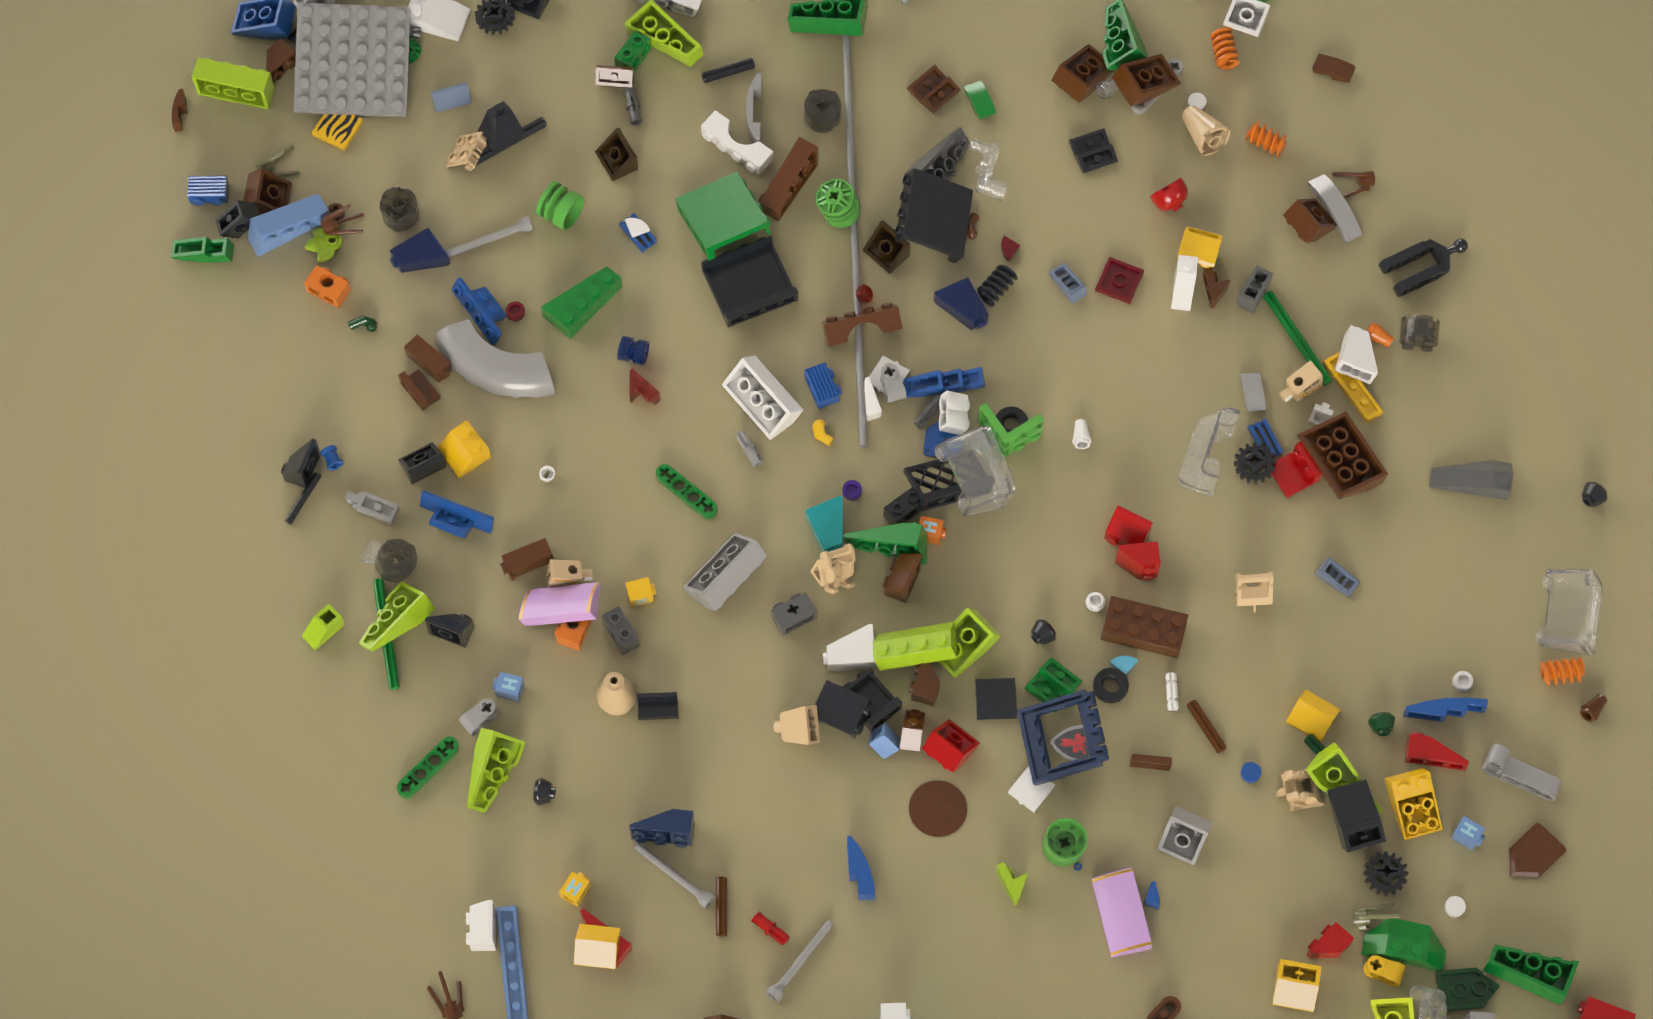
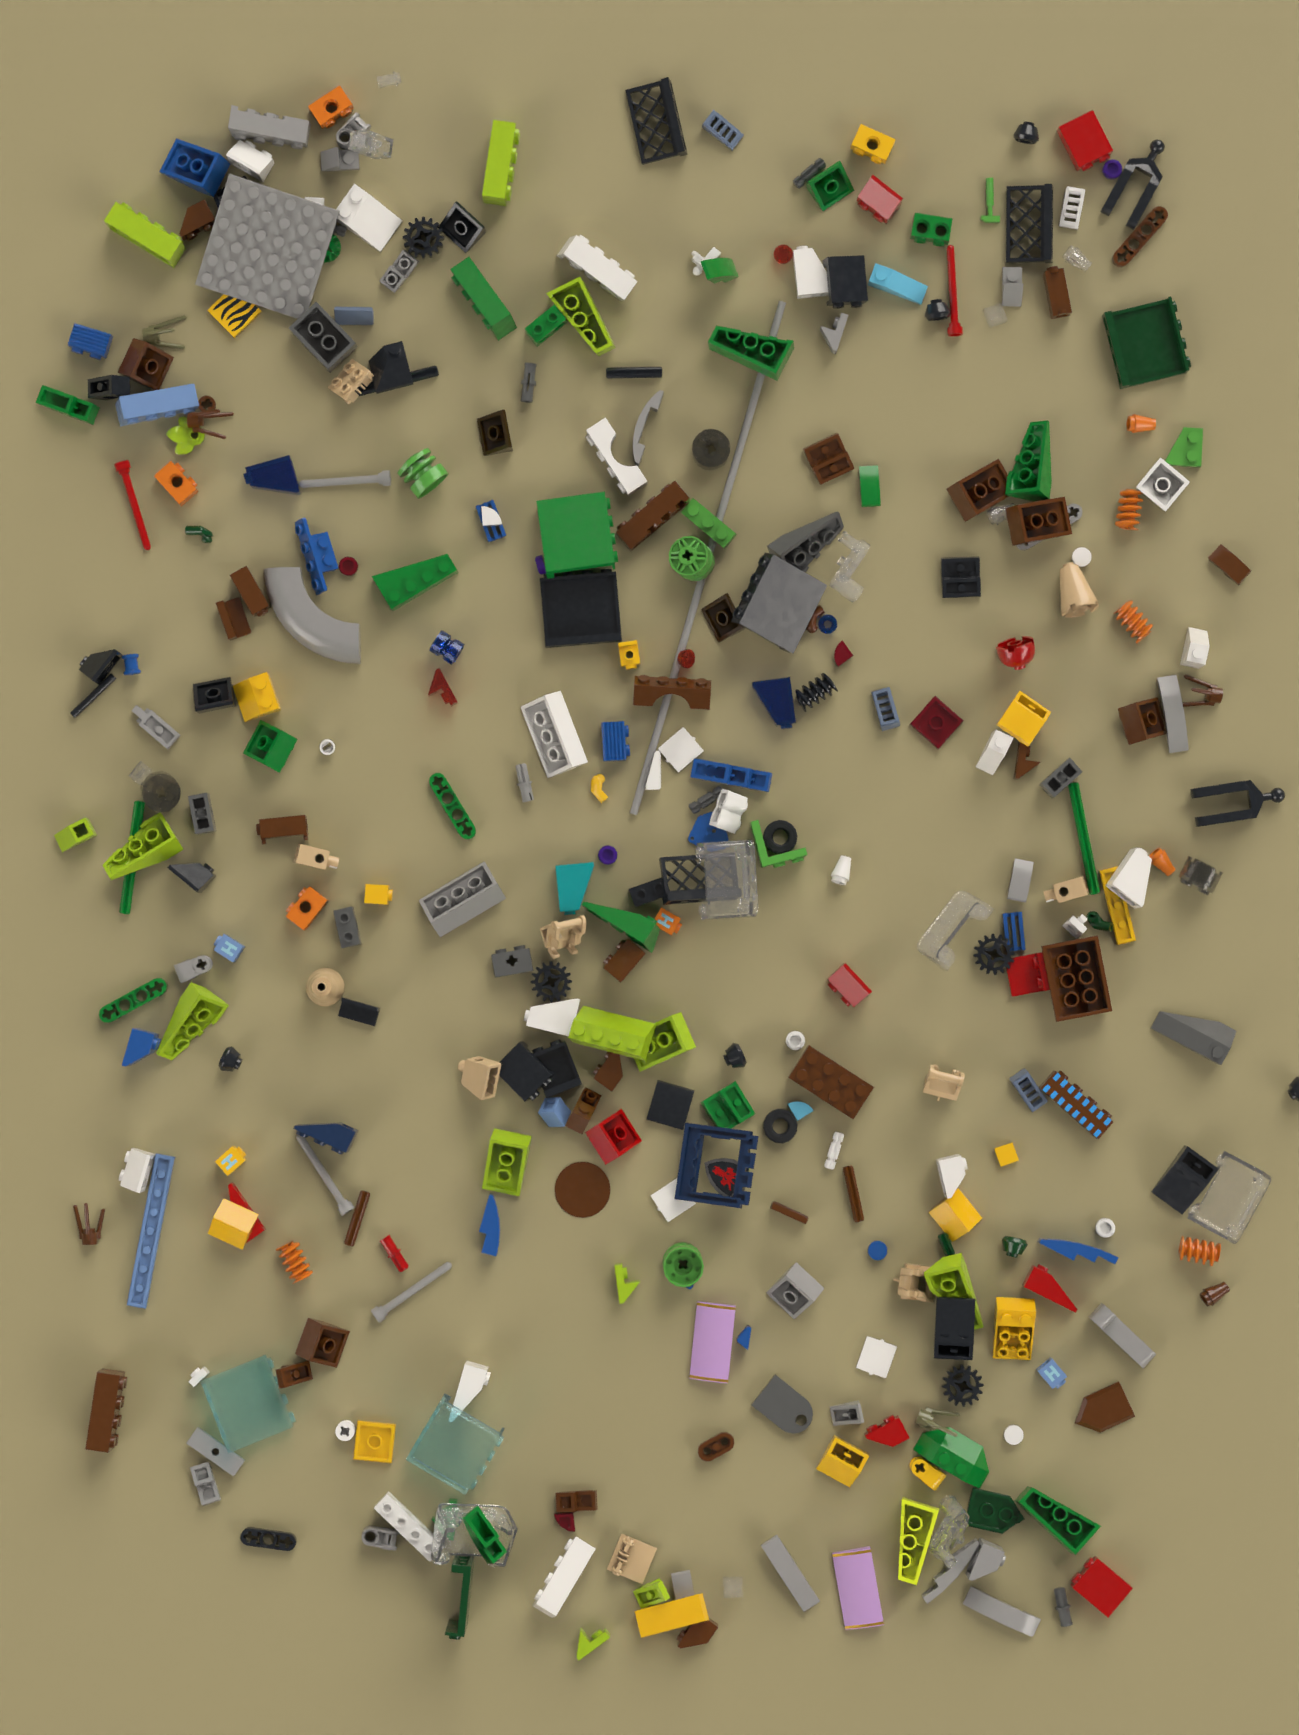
camera: 15 degrees right, 20 degrees up
(179, 107) = (86, 239): reddish brown slope -> none
(272, 288) = (124, 468): none -> red piece
(399, 208) = (277, 429): clear smoke brick -> none
(428, 121) = (323, 337): none -> dark grey brick
(443, 568) = (202, 813): none -> dark grey brick
(449, 803) = (140, 1045): none -> blue slope
(453, 516) = (226, 763): blue bracket -> none
(482, 49) = (399, 271): none -> light grey slope
(491, 489) = (270, 746): none -> green slope
(560, 604) = (299, 885): lavender slope -> none
(567, 46) = (483, 297): none -> green wedge
(614, 76) = (519, 348): panel -> none
(671, 967) = (294, 1261): none -> orange piece
(698, 254) = (540, 563): none -> dark purple tile
(808, 312) = (629, 646): none -> yellow brick
(834, 169) = (708, 523): none -> bright green plate
(838, 611) = (539, 986): none -> black gear
(853, 803) = (506, 1162): none -> lime slope
(892, 386) = (680, 766): light grey piece -> none
(985, 222) = (830, 618): none -> clear blue plate
(1139, 559) = (850, 1019): red slope -> none
(1215, 953) = (782, 1405): none -> dark grey tile
(1283, 937) = (847, 1413): none -> light grey slope
(1289, 876) = (876, 1357): none -> white piece
(1292, 671) = (951, 1173): none -> white slope
(1333, 145) = (1195, 648): none -> white slope
(1339, 643) = (1006, 1154): none -> yellow tile
(1340, 407) = (1097, 922): none -> dark green arm
(1388, 574) = (1076, 1104): none -> reddish brown brick
(1520, 608) = (1184, 1179): none -> black slope

